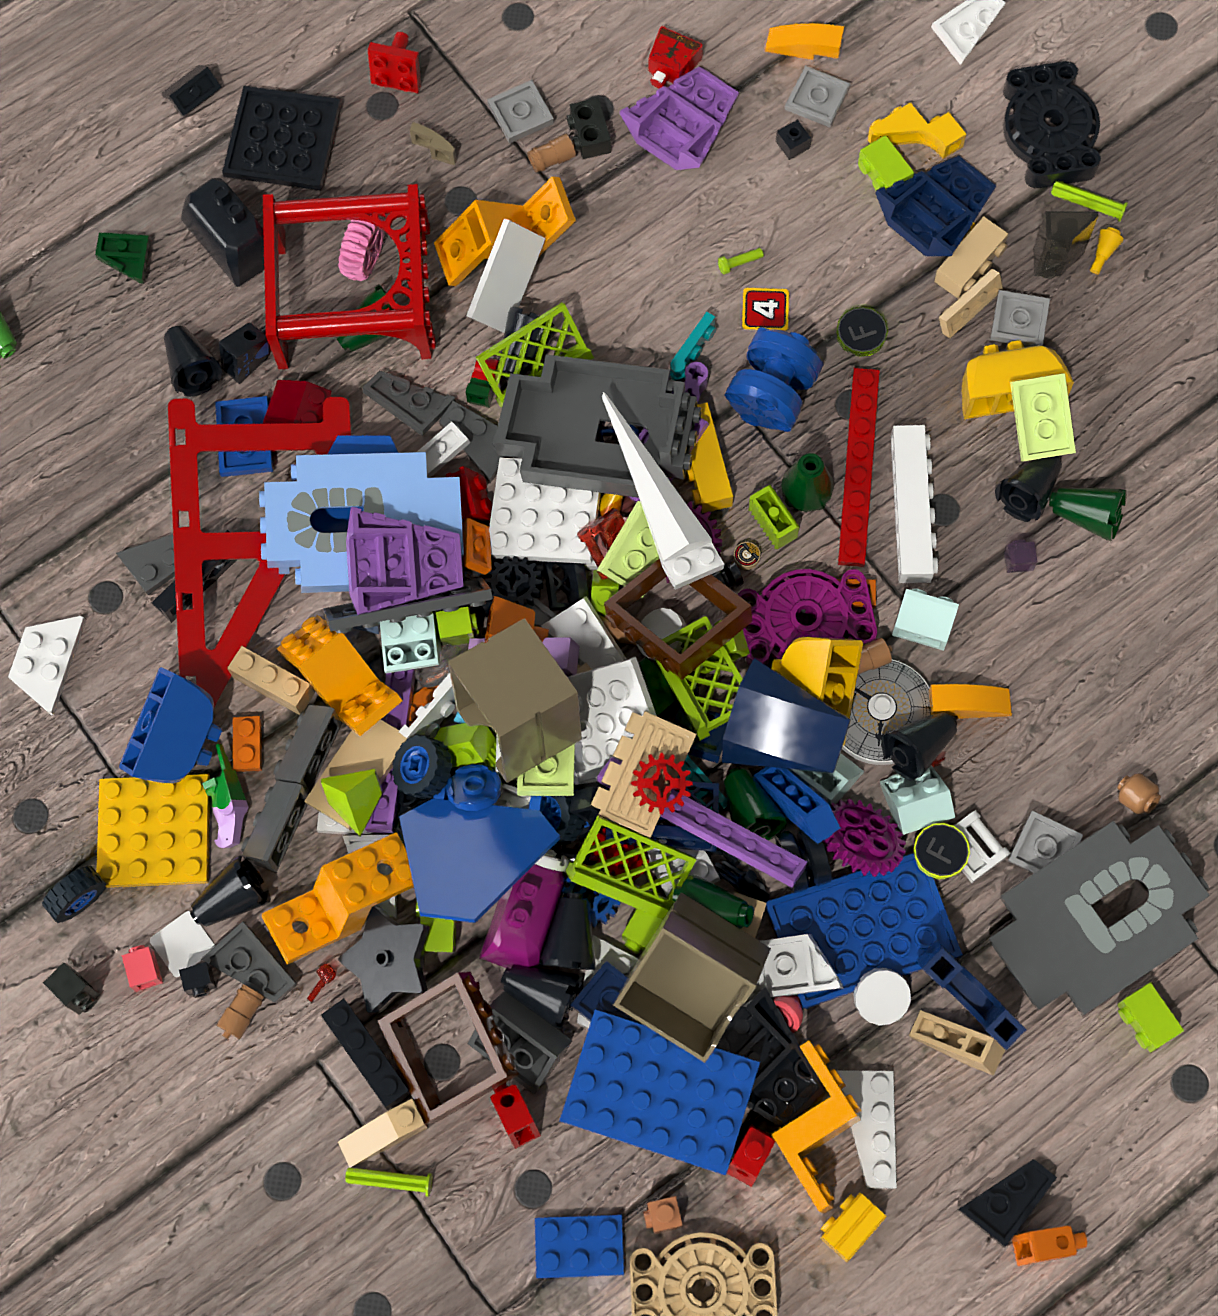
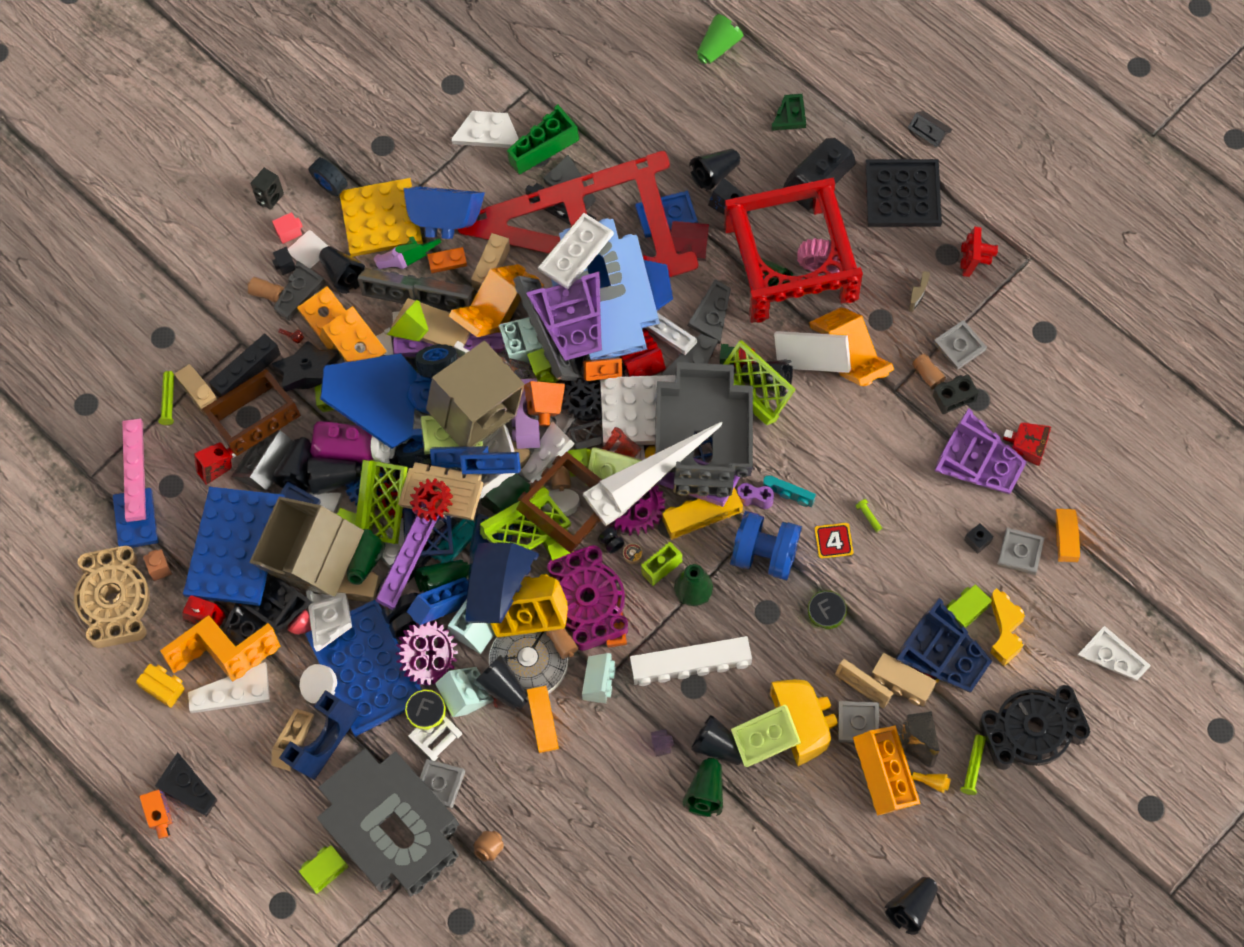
camera: 80 degrees right, 5 degrees down
(85, 575) = (543, 141): none -> green wedge
(304, 539) = (575, 251): none -> white tile
(503, 1239) = (134, 470): none -> bright pink plate
(609, 716) = (475, 460): none -> blue bracket
(858, 468) = (716, 621): red plate -> none
(1092, 296) = (886, 770): none -> light orange slope

